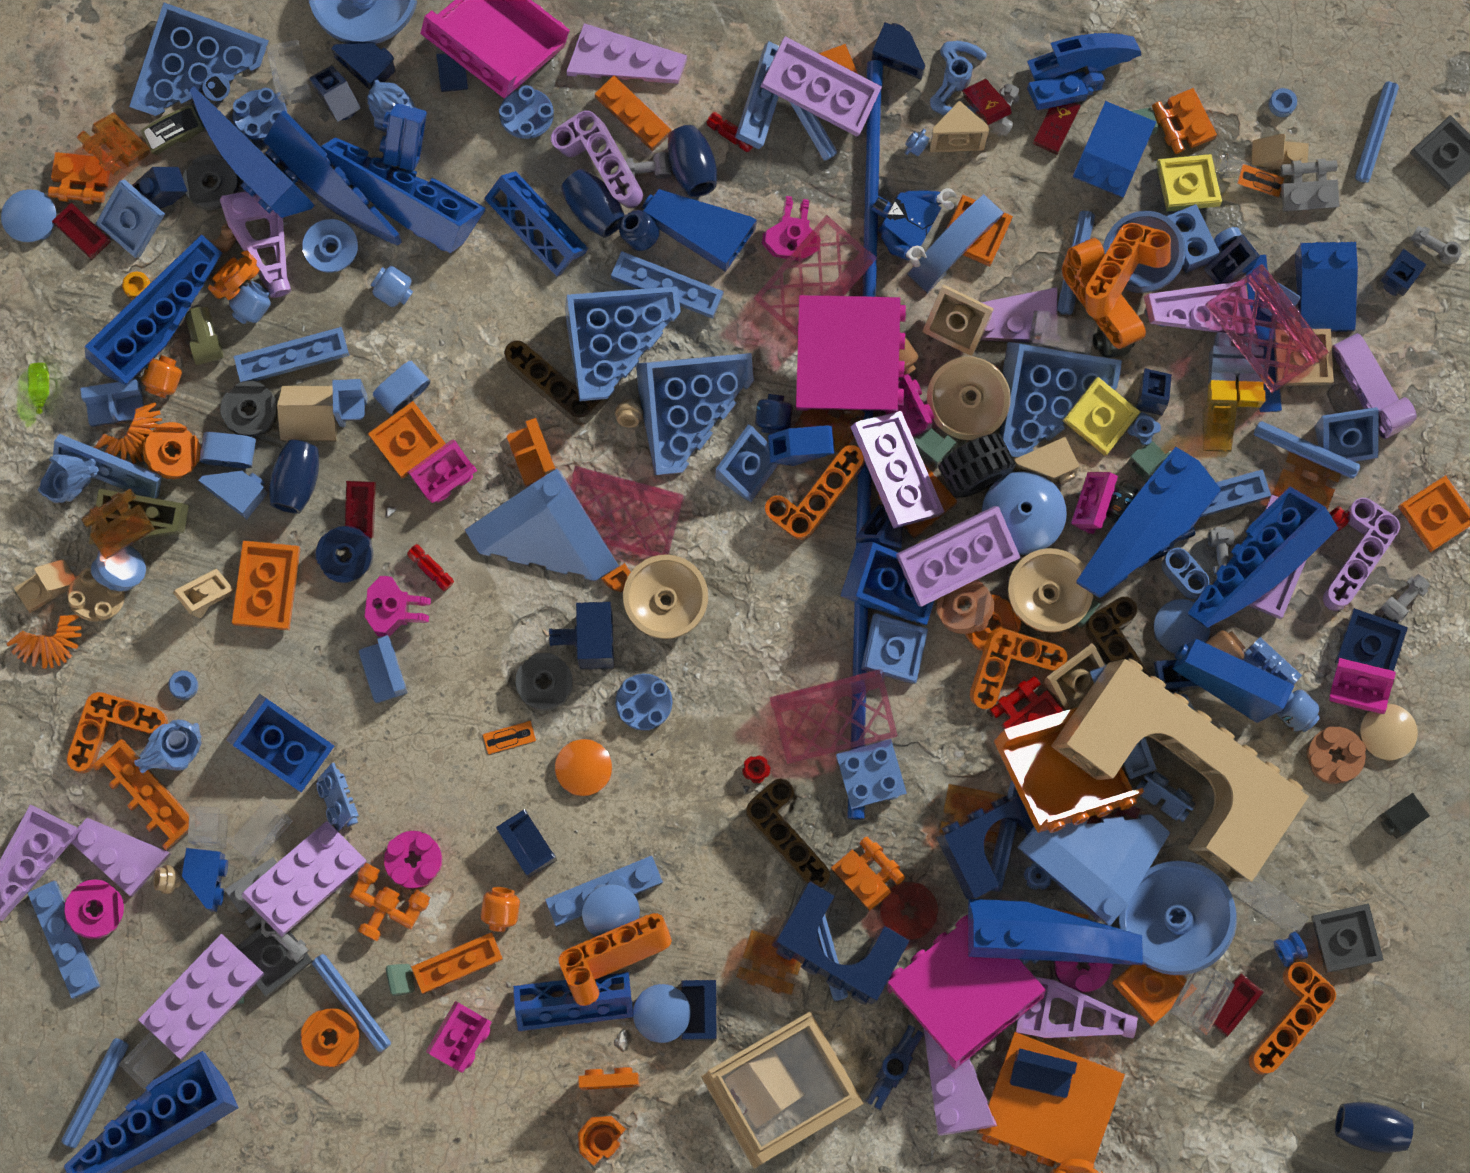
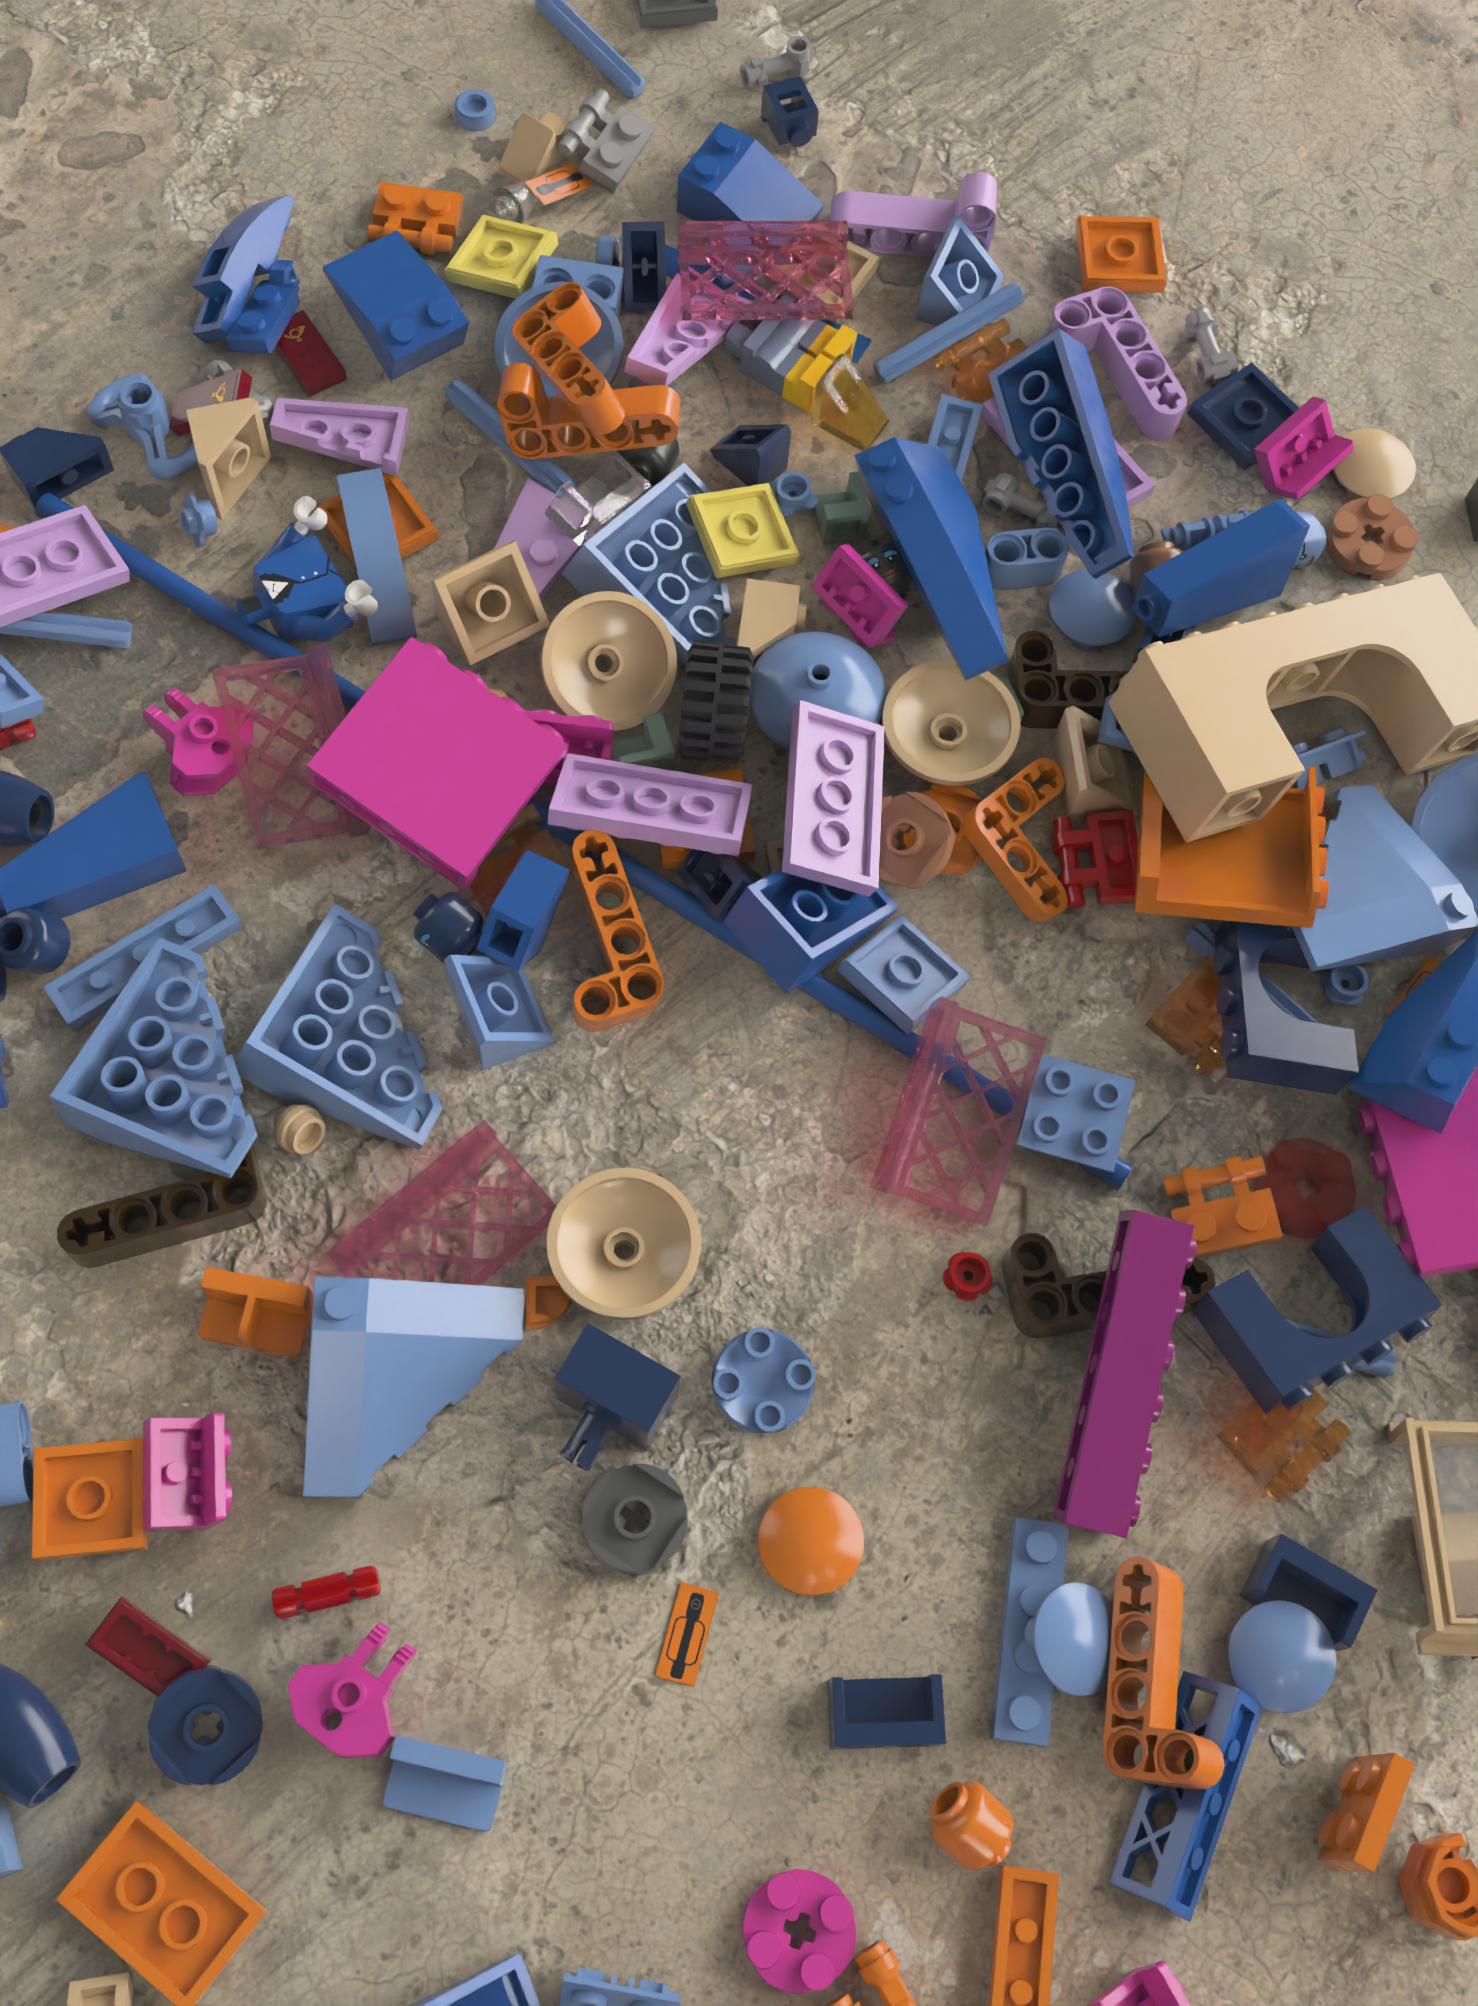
camera: 65 degrees left, 10 degrees down
(747, 863) = (1125, 1373): none -> magenta brick
(1019, 178) = (347, 431): none -> lavender wing

